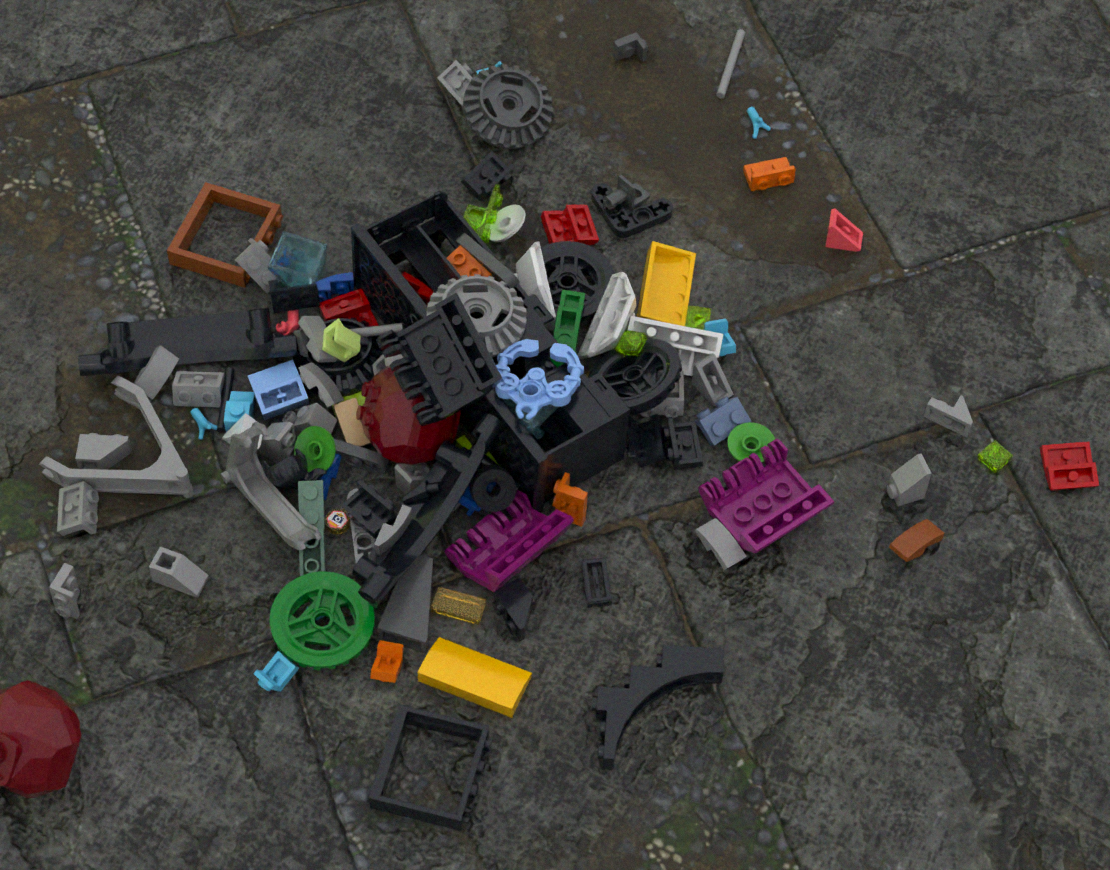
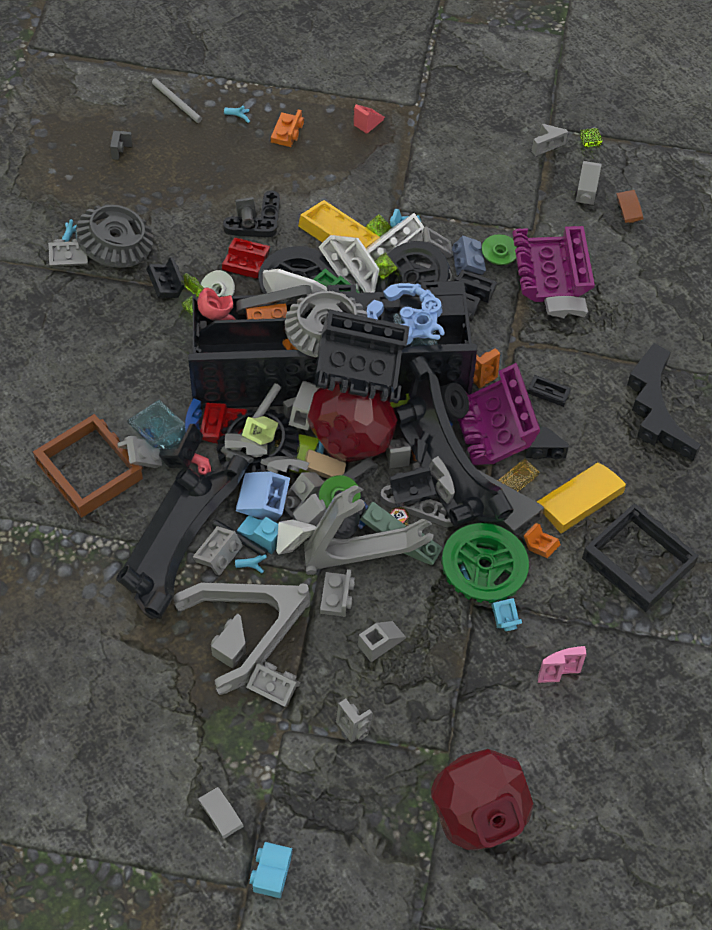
camera: 60 degrees left, 0 degrees up
(156, 371) = (187, 571): light grey slope -> none
(212, 512) = (336, 593): none -> light grey bracket
(239, 746) = (560, 663): none -> bright pink slope
(442, 217) = (213, 306): none -> coral hair
(1069, 466) = (621, 107): red slope -> none

